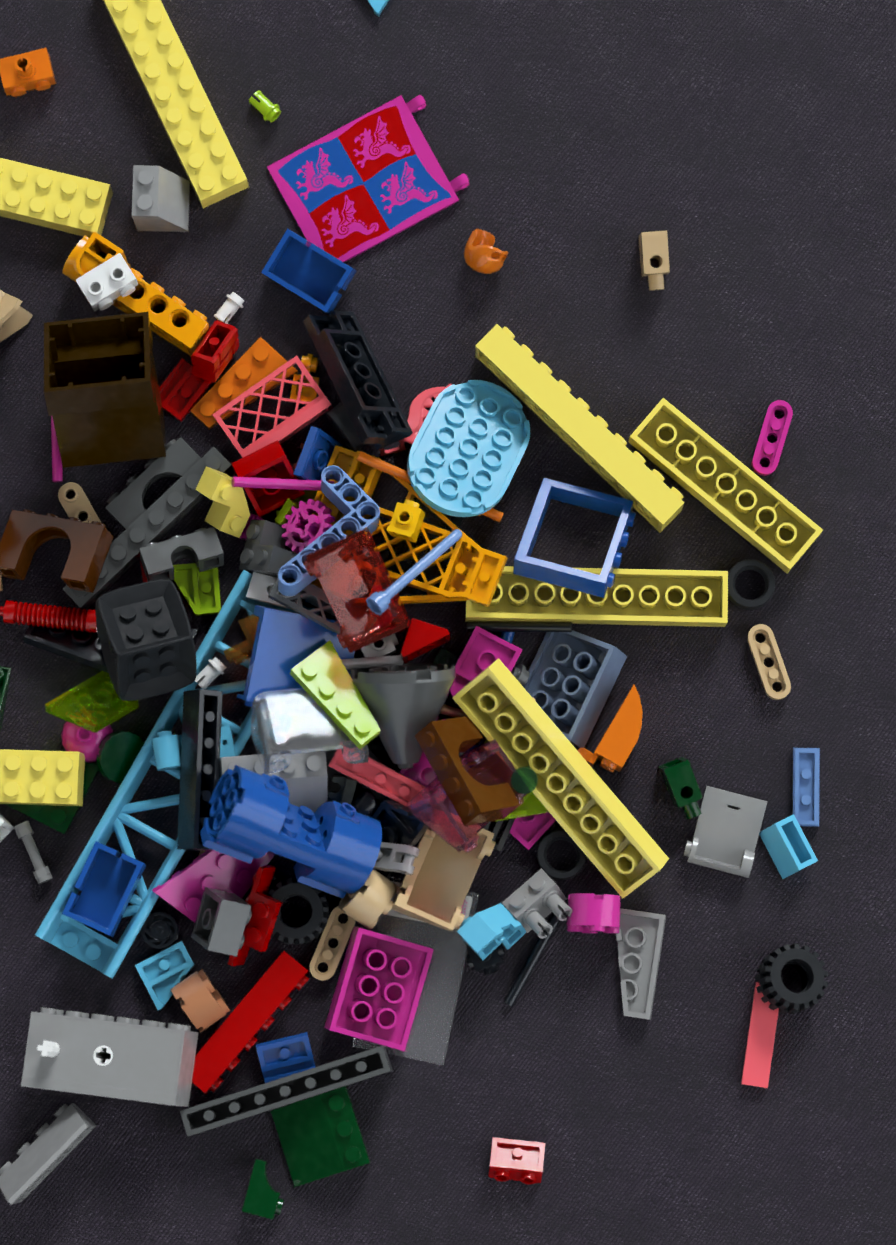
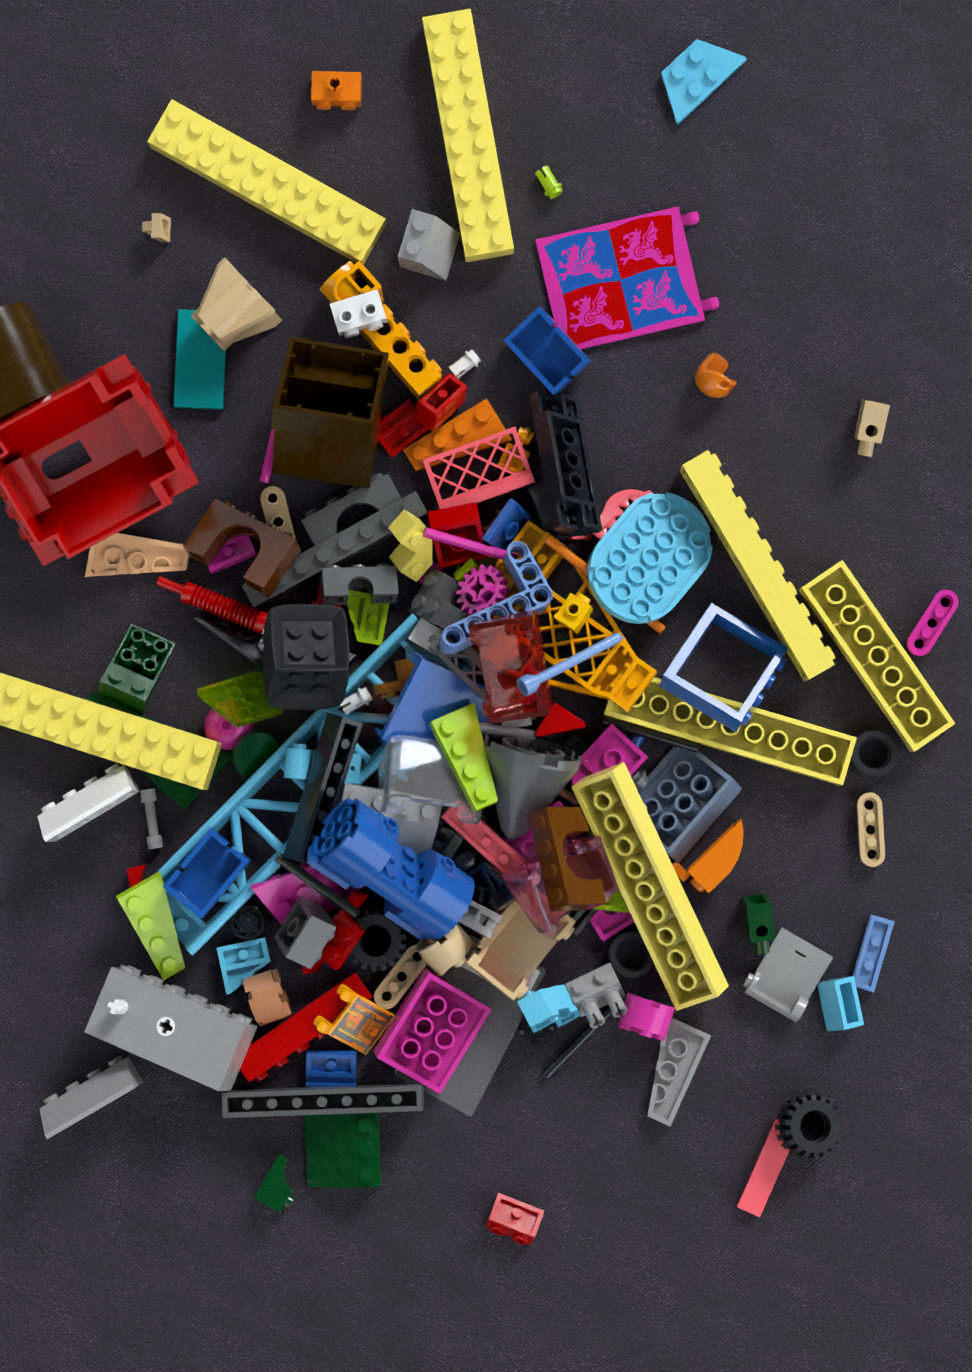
camera: 15 degrees right, 5 degrees up
(32, 915) = (136, 874): none -> red slope
(44, 560) = (233, 552): none -> dark pink plate
(60, 953) = (153, 922): none -> lime wing
(220, 870) = (317, 885): none -> pearl dark grey bar
(301, 1002) = (358, 1023): none -> flag
(524, 780) = (616, 880): clear green tile -> none

